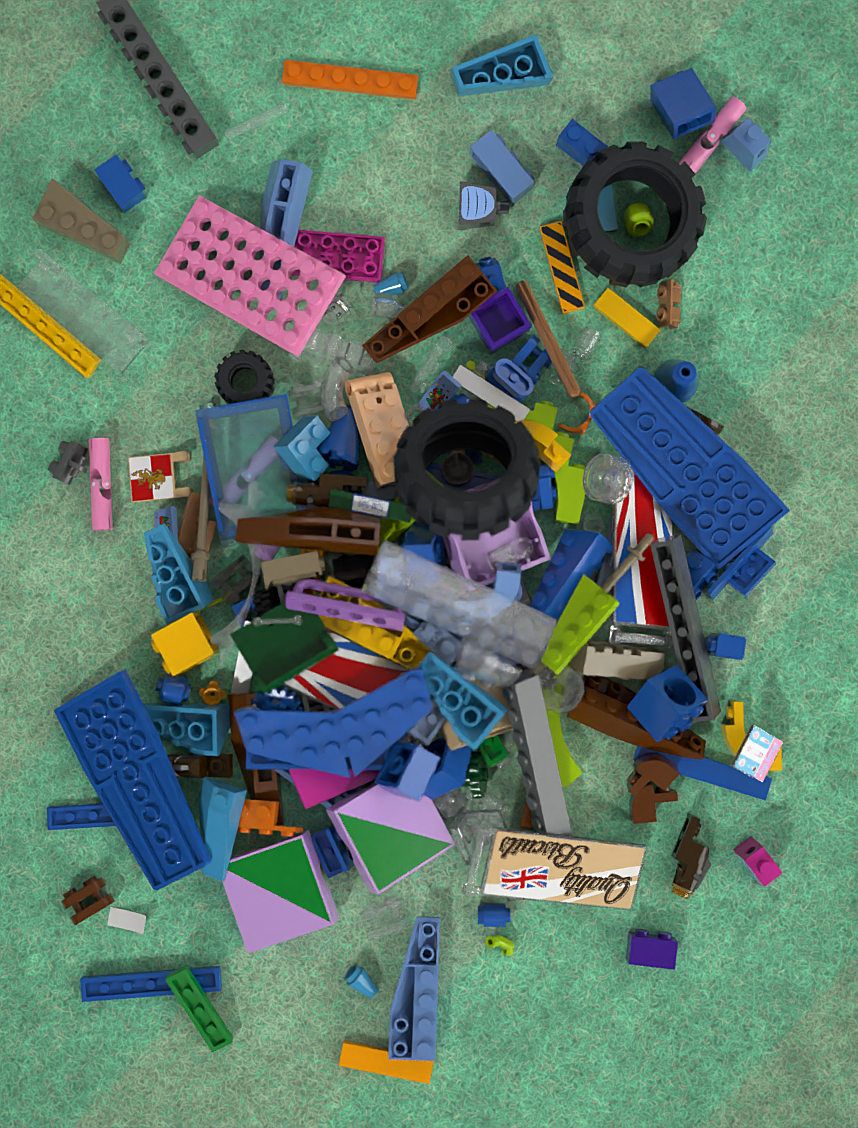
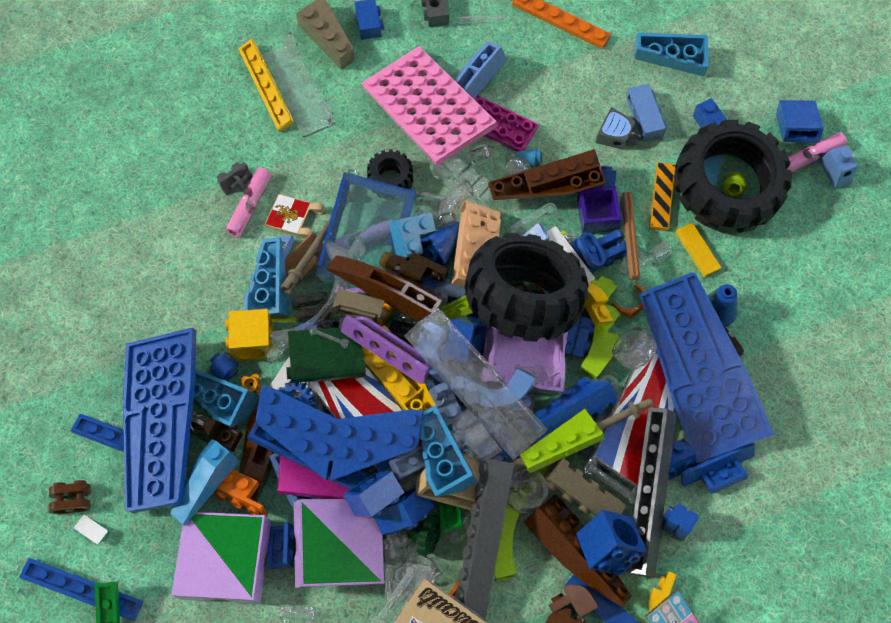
camera: 25 degrees right, 20 degrees down
(369, 505) = (440, 288): sticker -> none
(668, 293) = (737, 245): medium nougat hinge -> none

